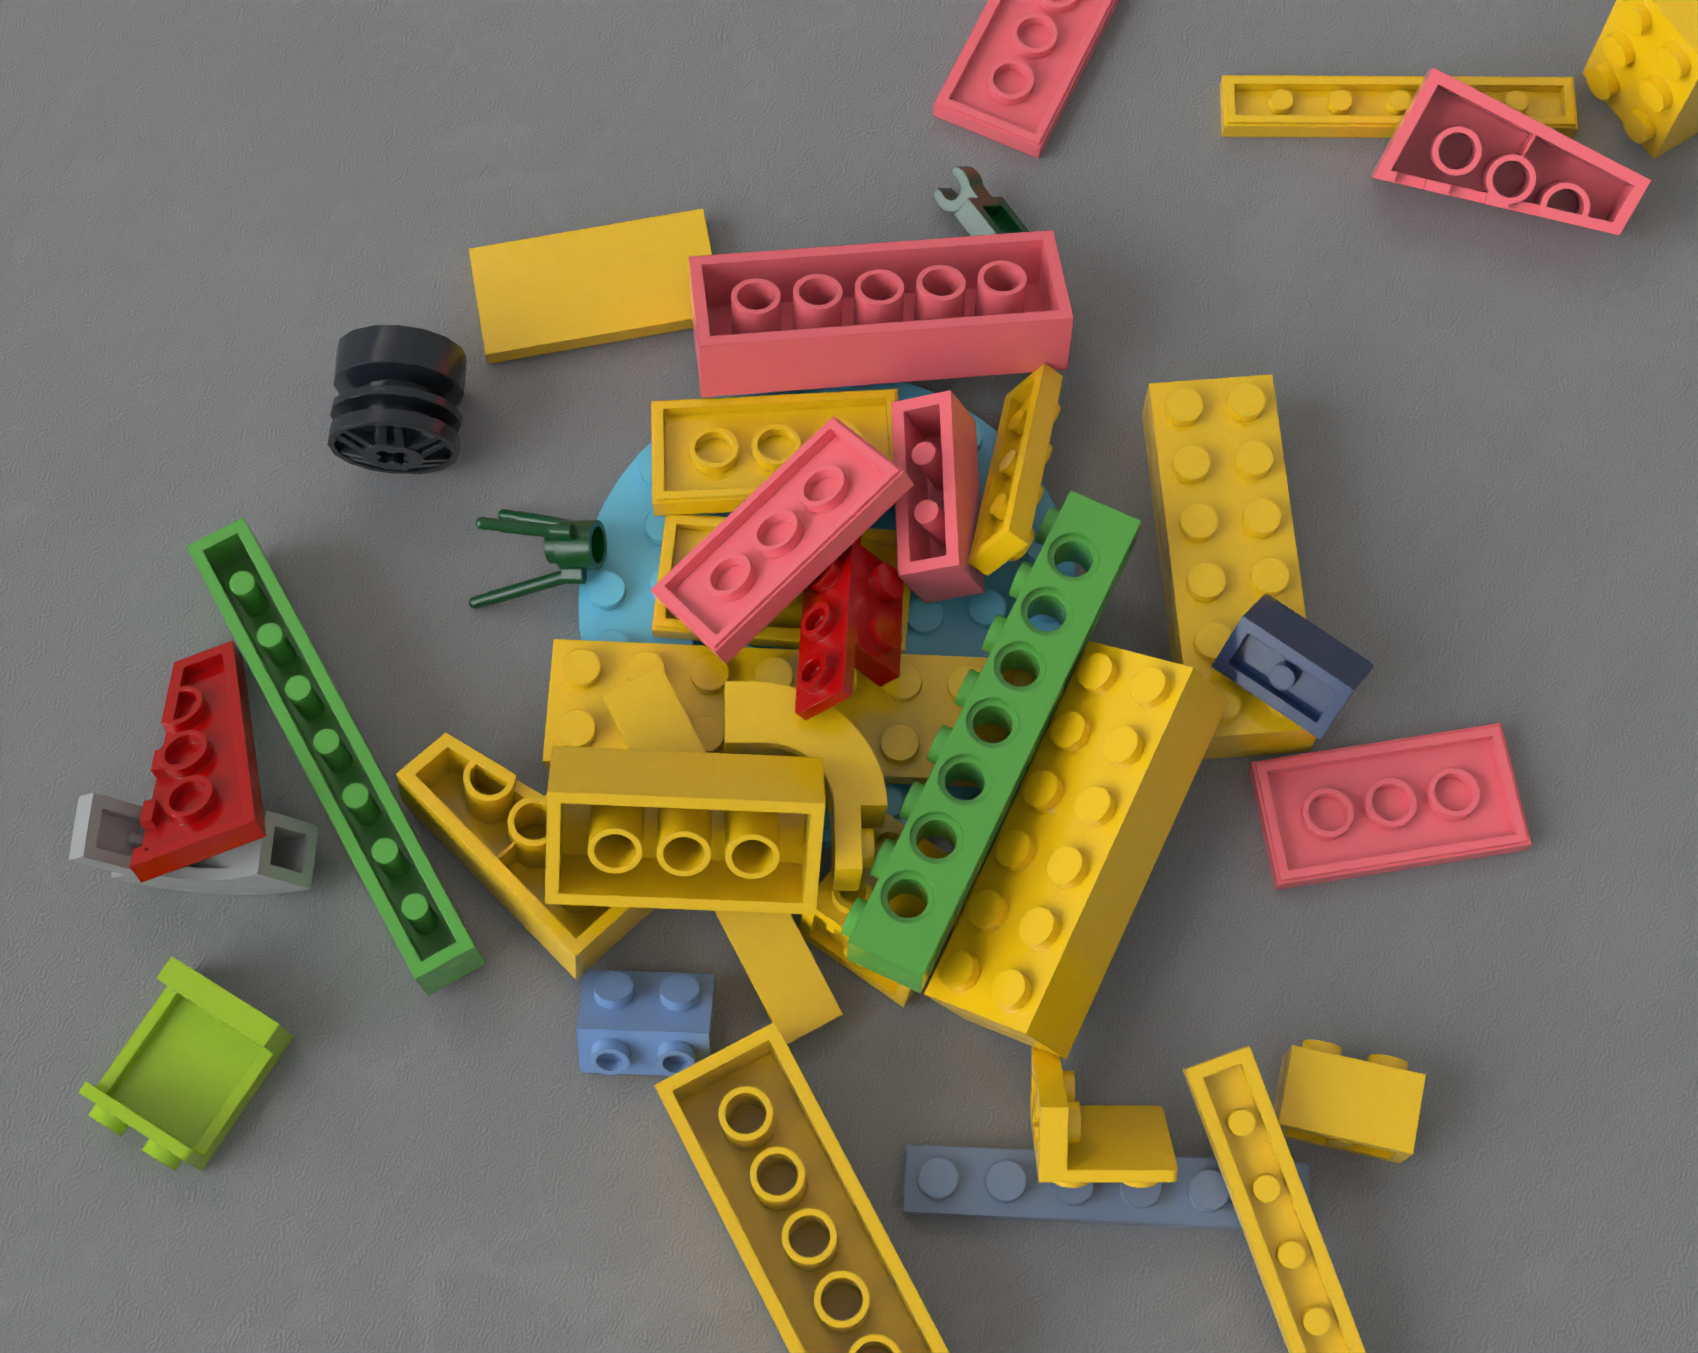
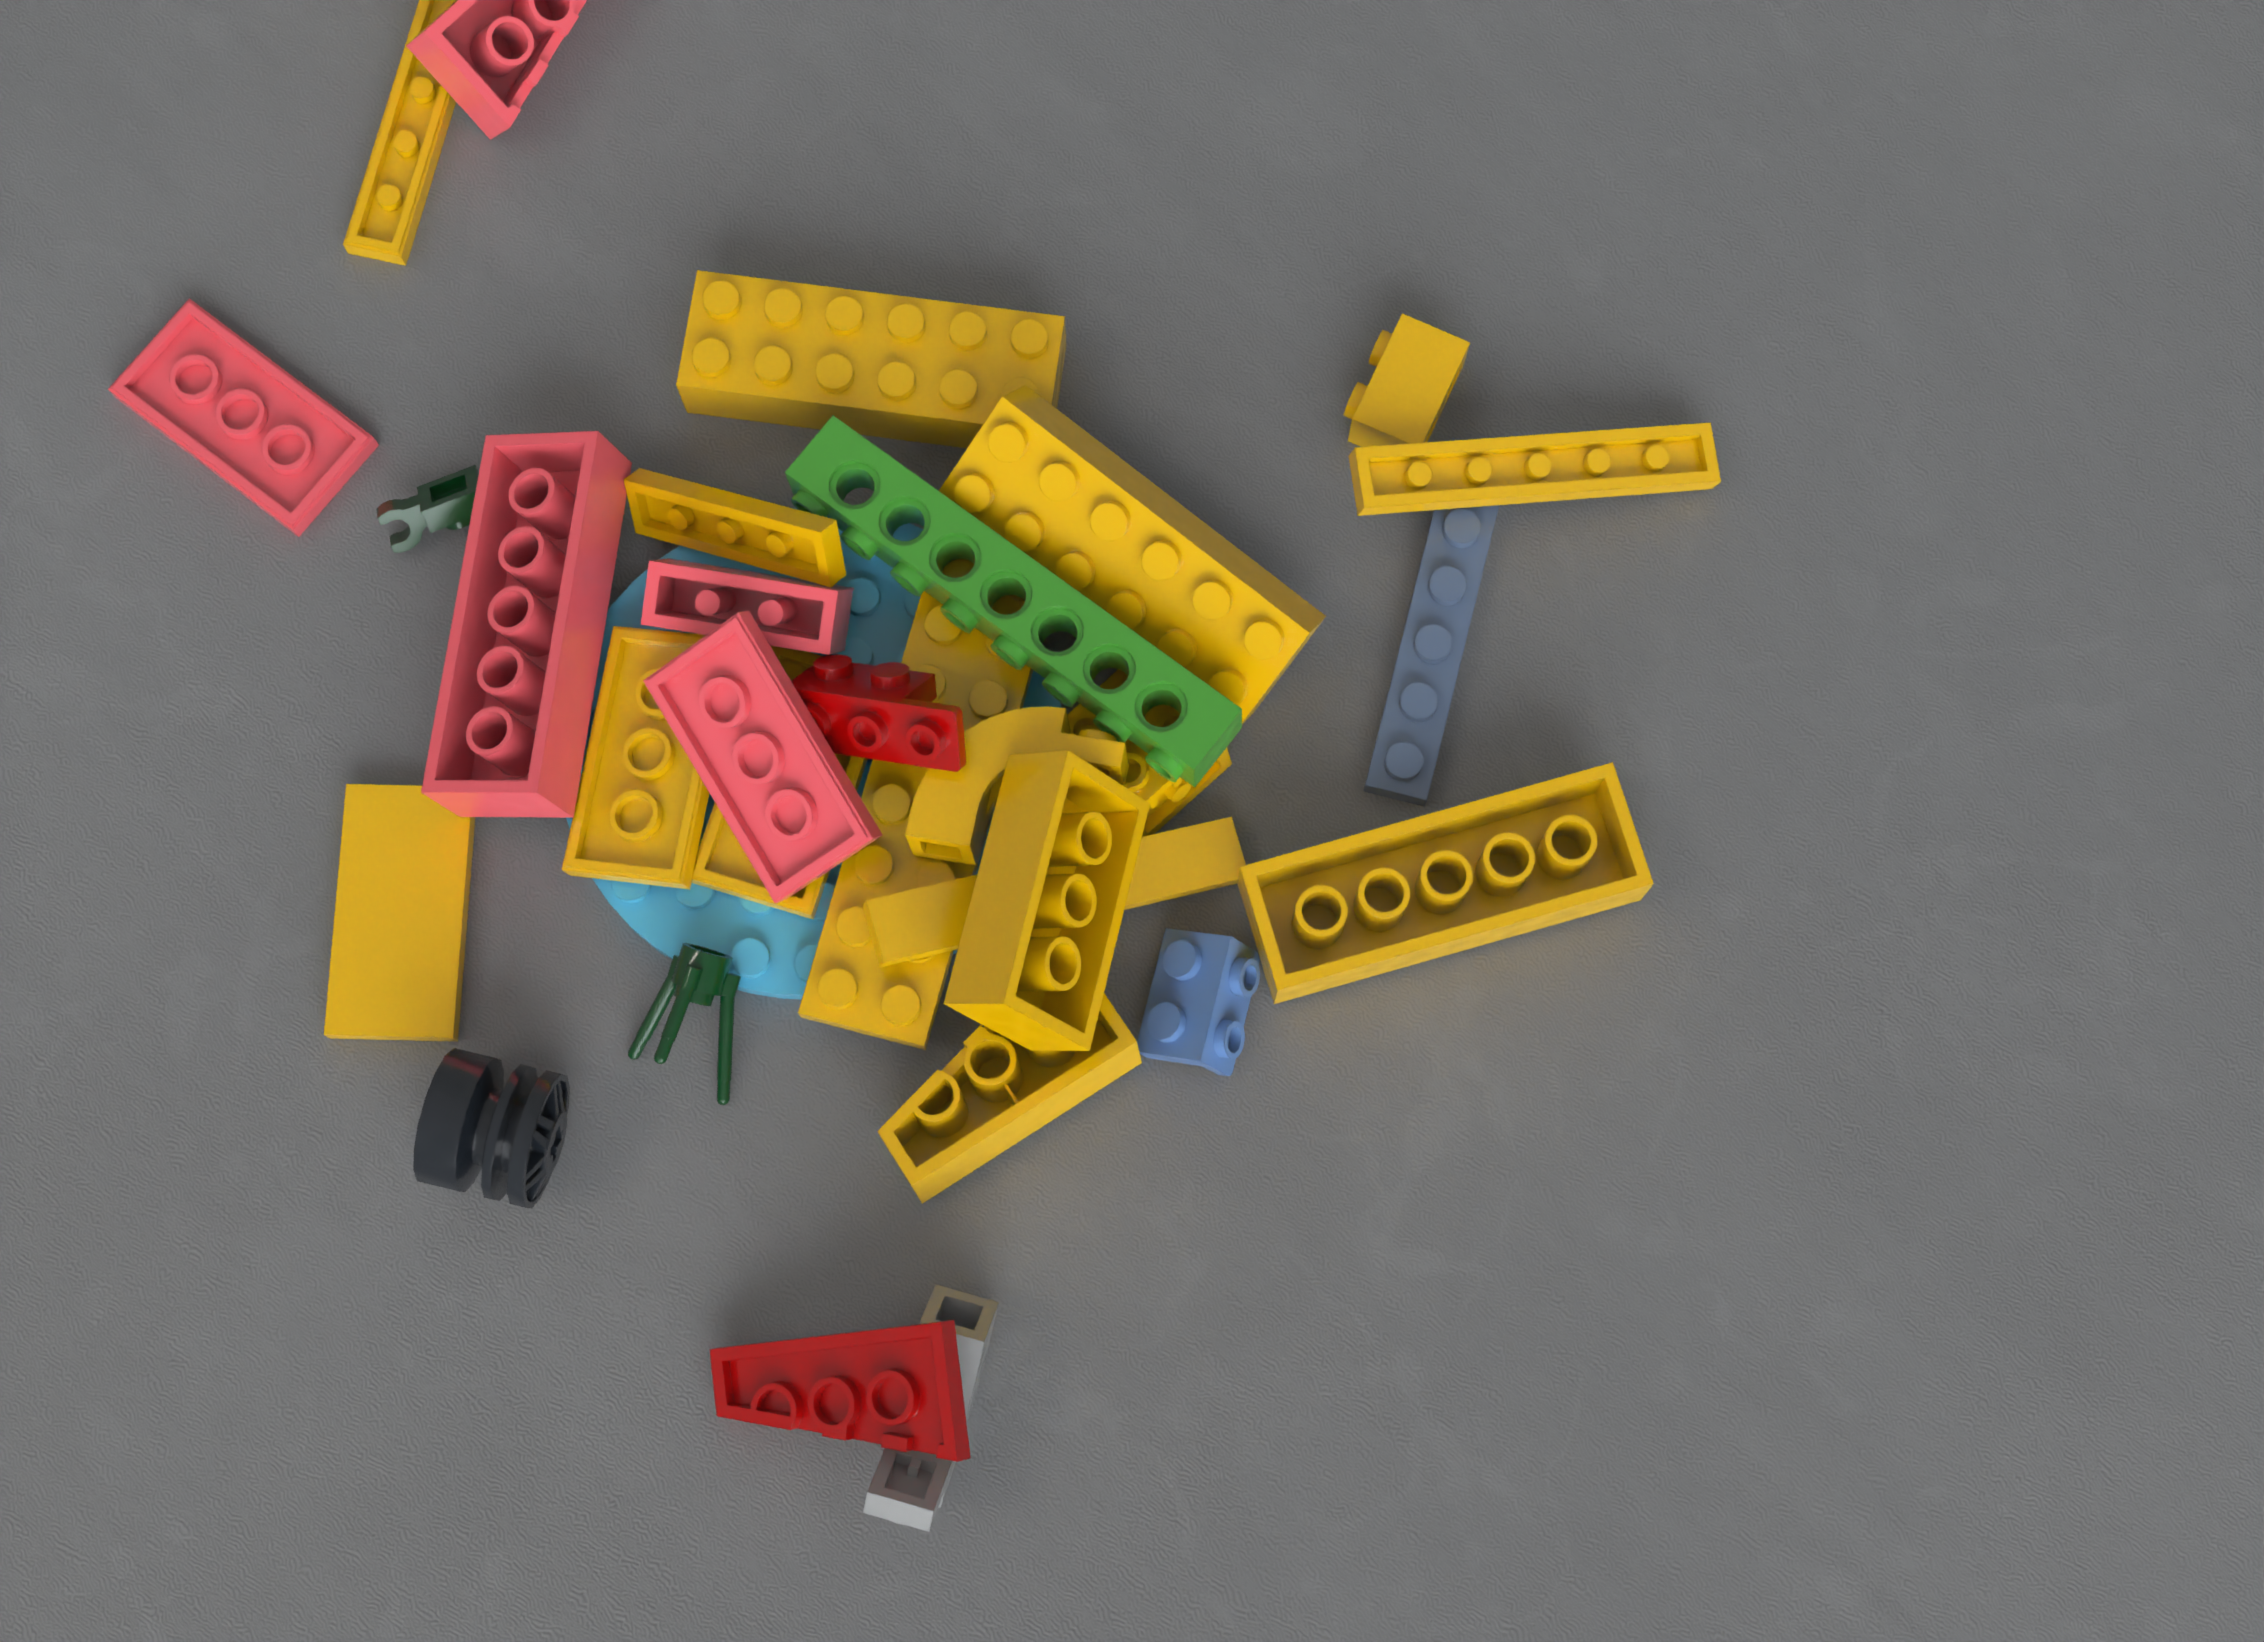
camera: 80 degrees left, 5 degrees up
(187, 1069) = (1150, 1459): lime panel -> none
(336, 758) = (858, 1257): bright green brick -> none
(1094, 1141) = (1400, 611): yellow bracket -> none
(1292, 665) = (1006, 319): dark blue panel -> none
(1389, 806) = (1136, 289): coral tile -> none

